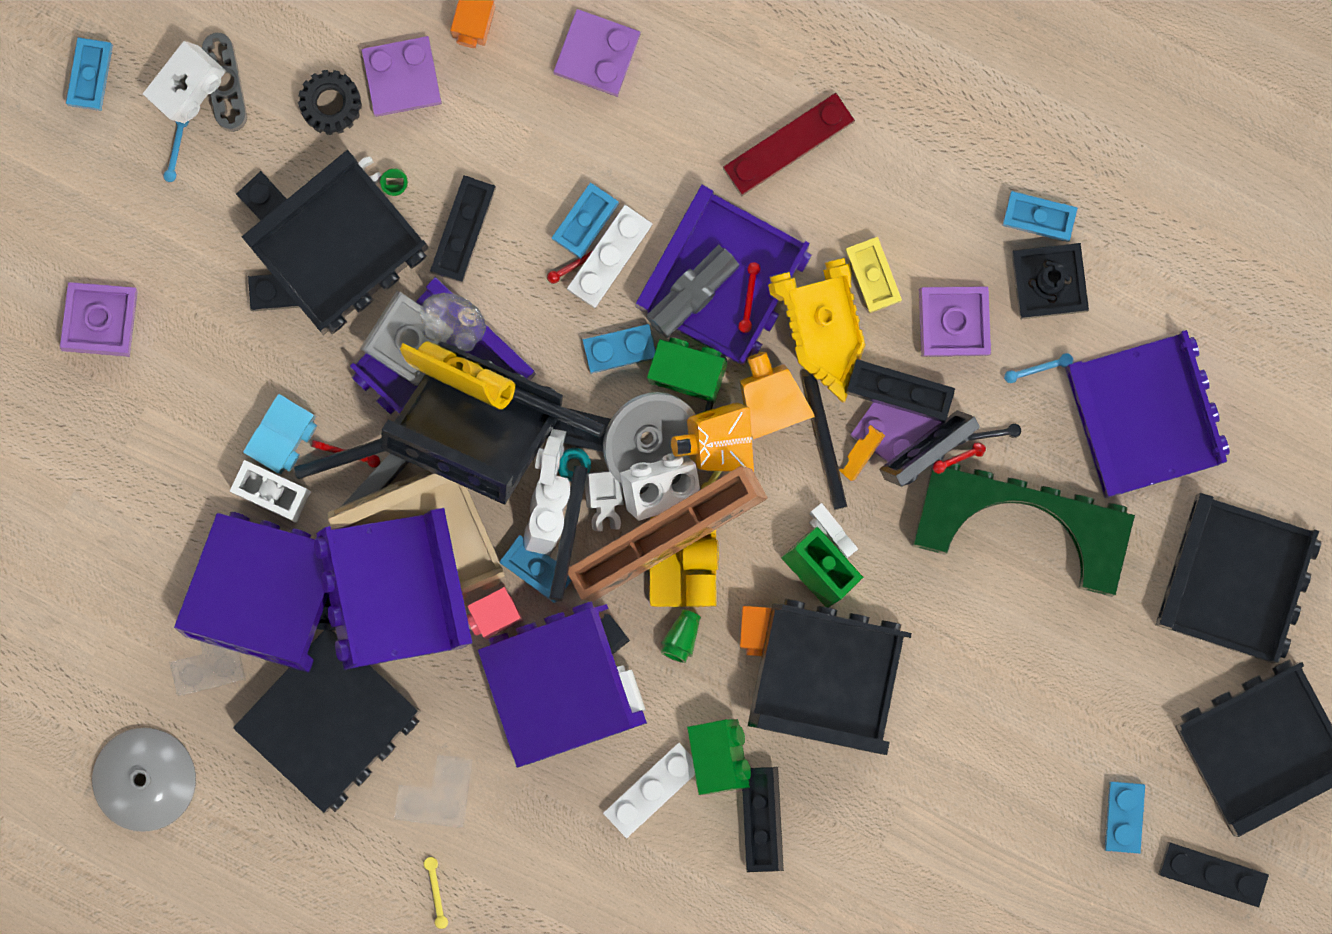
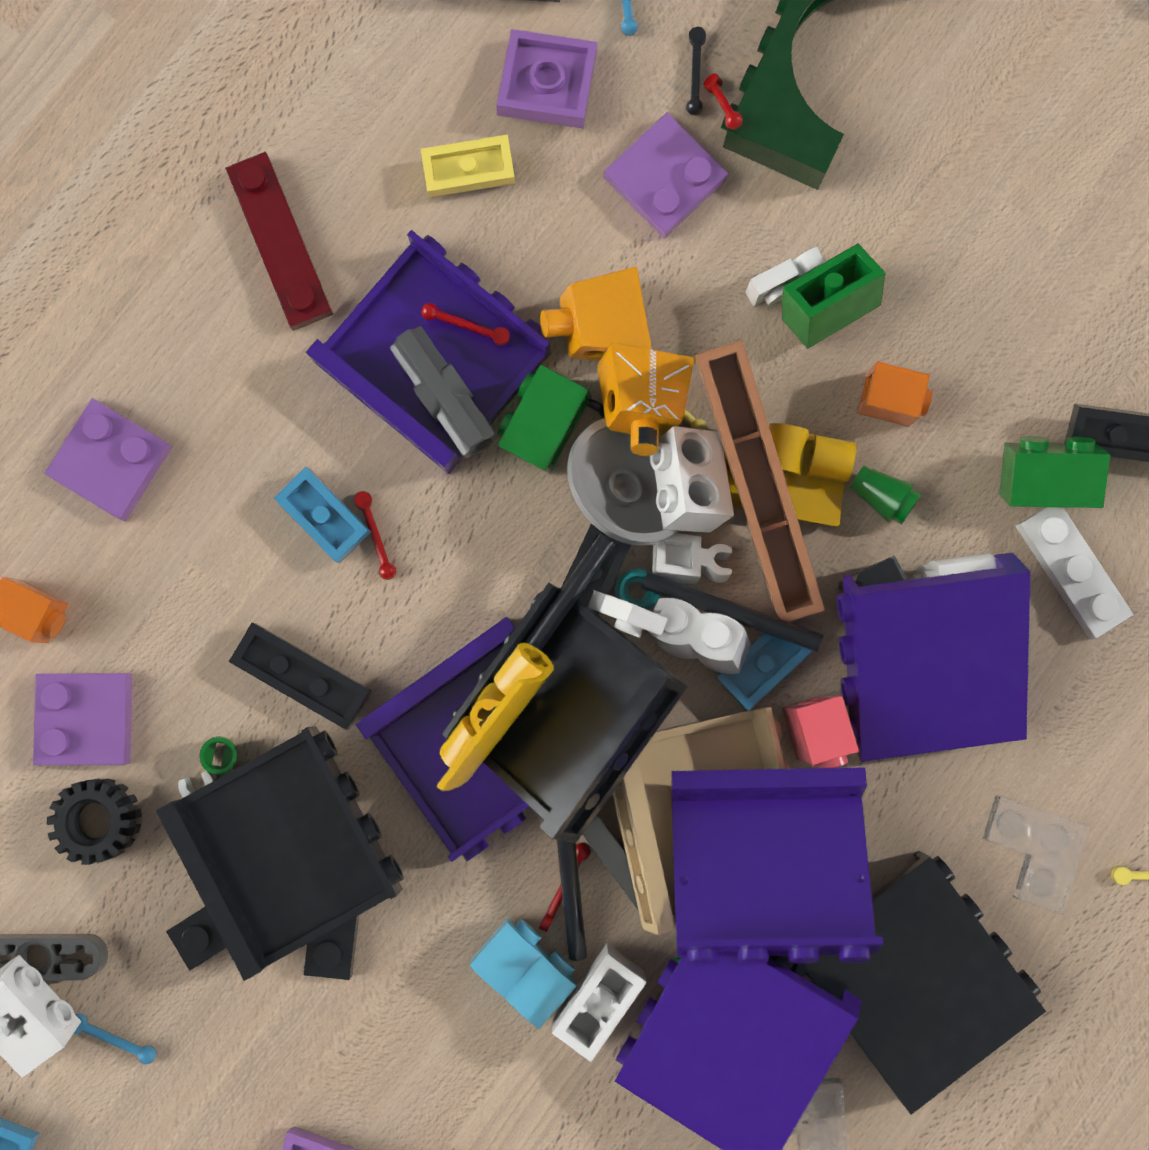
camera: 80 degrees left, 0 degrees up
(397, 325) = (410, 777): light grey plate -> none
(452, 321) = (418, 711): clear dish -> none
(609, 256) = (376, 493): white plate -> none
(619, 348) = (497, 503): dark azure plate -> none
(824, 324) = (518, 233): yellow shield -> none
(825, 442) = (675, 267): black bar -> none
(827, 676) = (978, 319): black panel -> none
(861, 453) = (692, 222): light orange piece -> none
(900, 391) = (624, 155): black plate -> none
(929, 448) = (706, 131): black plate -> none

